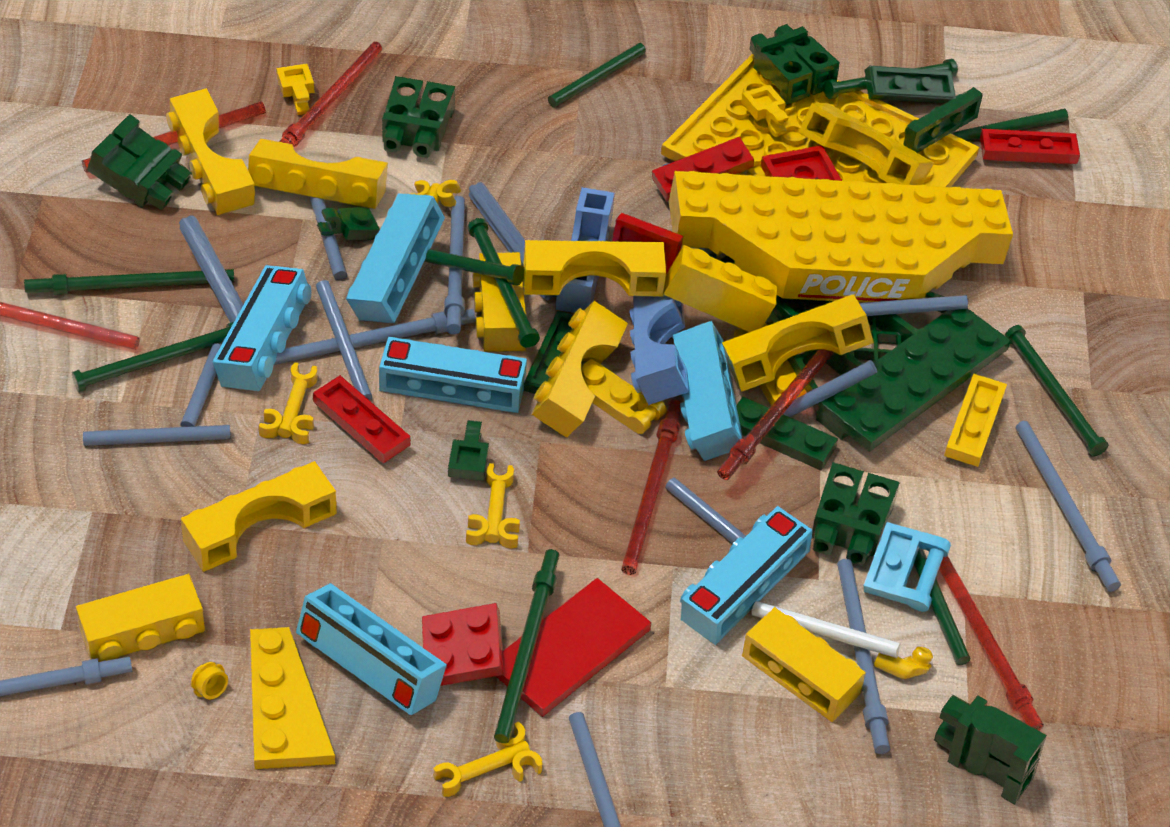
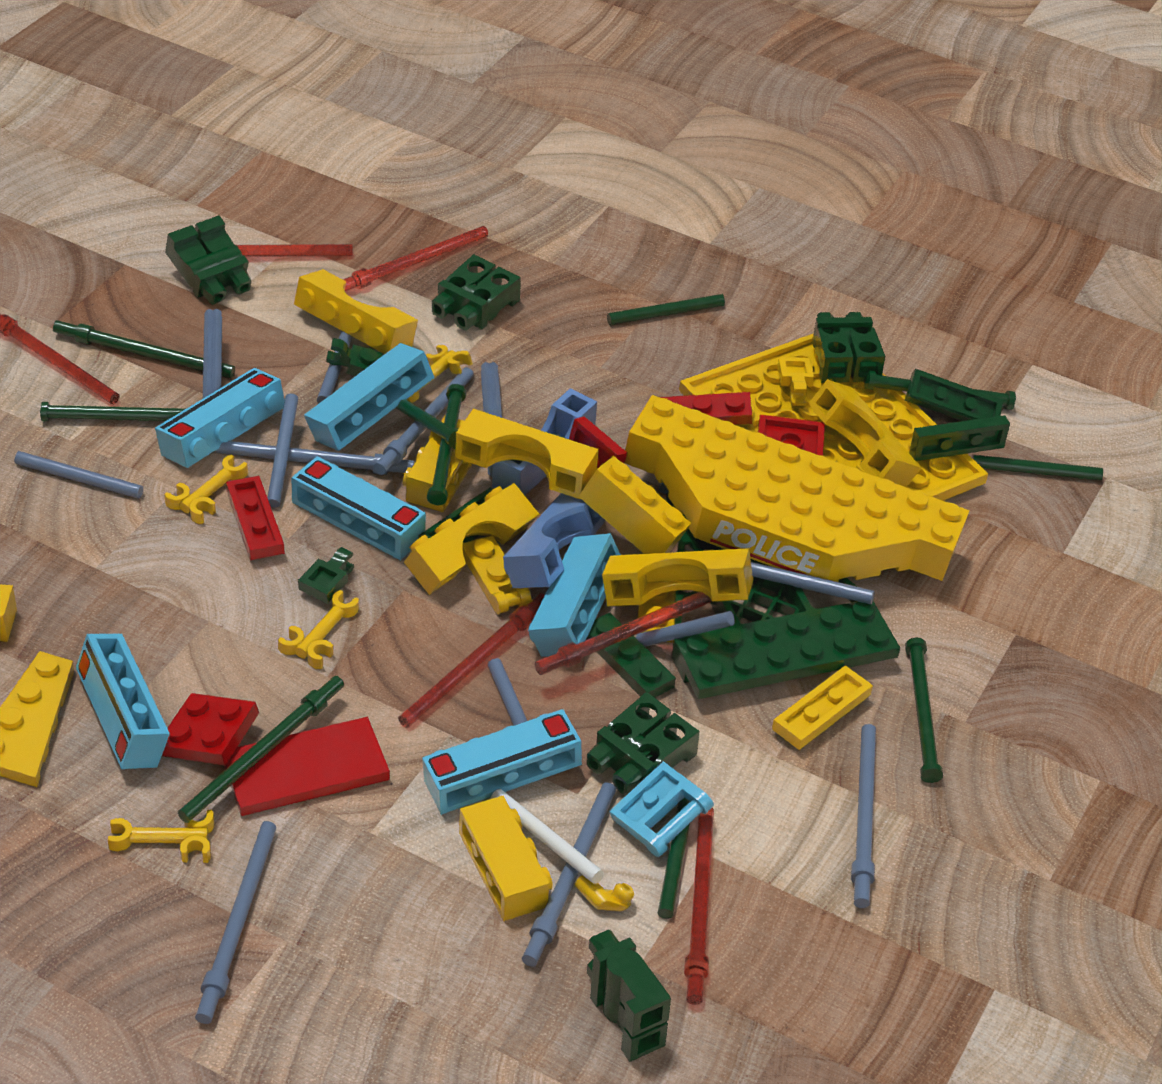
camera: 25 degrees right, 5 degrees down
(201, 390) = (132, 457): sand blue bar -> none
(223, 180) = (273, 292): yellow arch -> none
(296, 82) = (391, 238): yellow plate -> none
(296, 496) = (70, 562): yellow arch -> none
(1029, 146) = (1043, 489): red plate -> none

